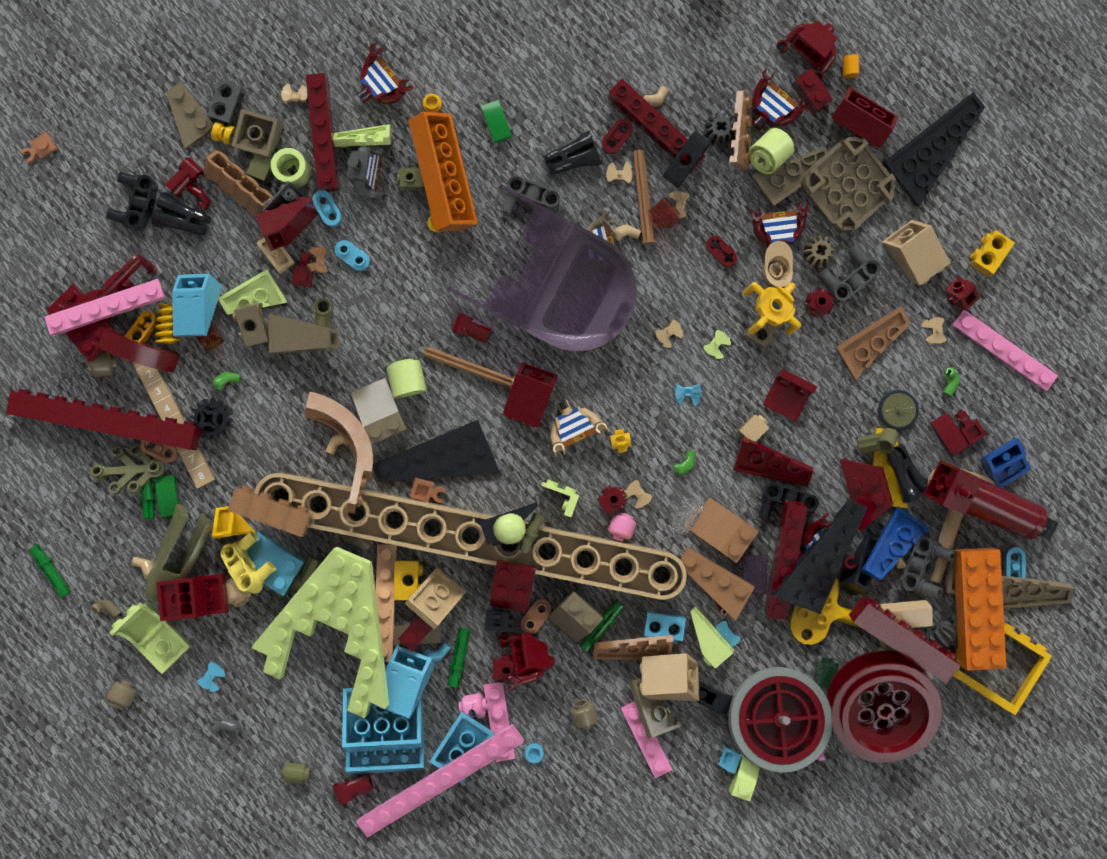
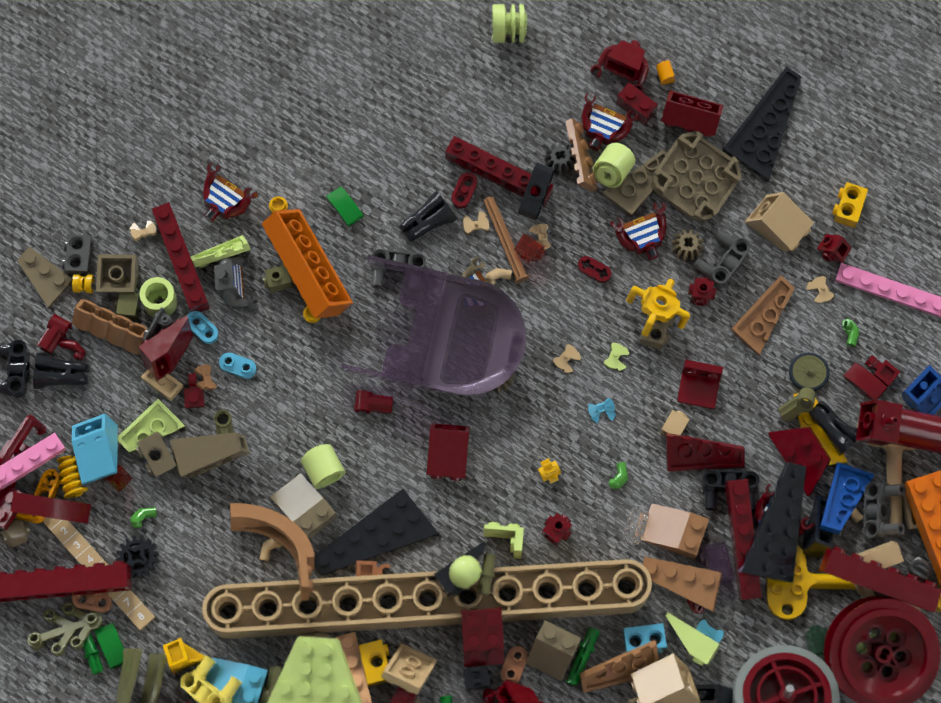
camera: 15 degrees left, 15 degrees down
(270, 512) = (224, 622): medium nougat brick -> none
(469, 367) = (381, 441): medium nougat axle -> none
(573, 426) = (500, 468): torso -> none
(622, 527) = (574, 551): bright pink head -> none
(635, 489) = (587, 521): tan piece -> none
(657, 99) = (493, 147): tan arm -> none
(778, 264) = (652, 265): tan piece -> none

